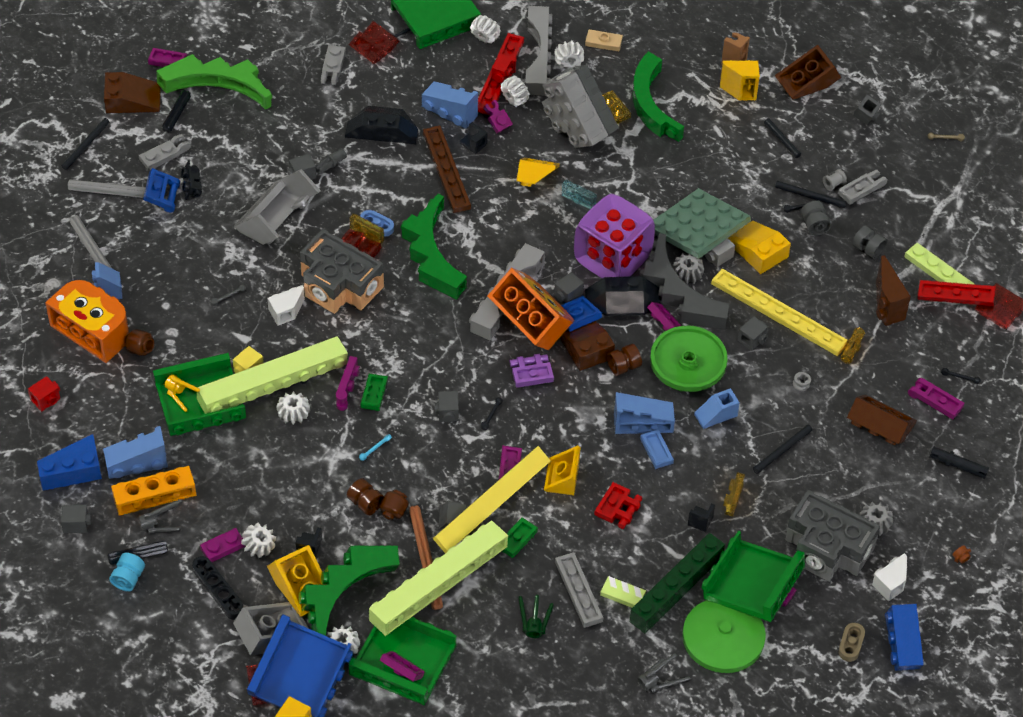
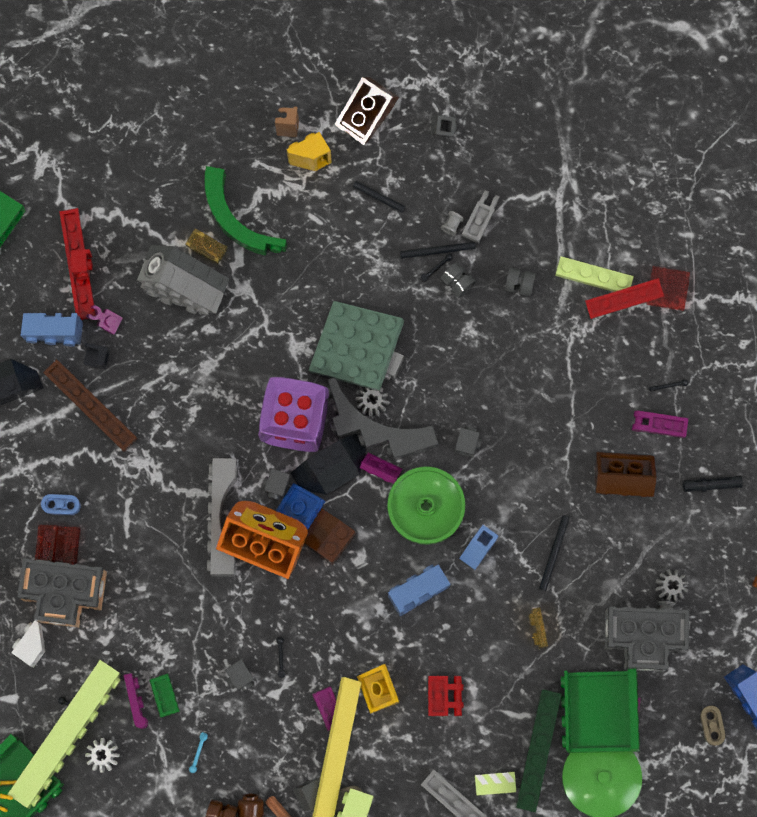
camera: 25 degrees left, 25 degrees up
(247, 359) = (34, 731): light yellow brick -> none
(369, 229) = (55, 518): clear yellow plate -> none
(433, 267) = (106, 492): green arch -> none
(485, 29) = (36, 220): white gear -> none
(515, 91) = (105, 281): white gear -> none
(519, 536) = (376, 778): green plate -> none
(531, 374) = (294, 597): medium lavender plate -> none
(533, 170) = (175, 362): yellow slope -> none
(539, 28) = (114, 248): light grey arch -> none
(569, 54) = (133, 209): white gear -> none
(578, 194) = (229, 370): clear light blue plate -> none
(603, 40) = (153, 167): tan plate -> none
(626, 359) = (369, 537): reddish brown wheel -> none
(656, 449) = (445, 614): medium blue tile -> none
(701, 518) = (522, 667): black panel -> none
(760, 246) = (423, 337): yellow slope -> none
(779, 312) = (476, 402): light yellow tile -> none
(797, 381) = (540, 470): light grey bush -> none
(849, 353) = (560, 406): clear yellow pin -> none
(891, 295) = (570, 338): reddish brown slope -> none
(892, 578) = (716, 640): white slope -> none
(960, 137) = (539, 107): dark tan hinge -> none

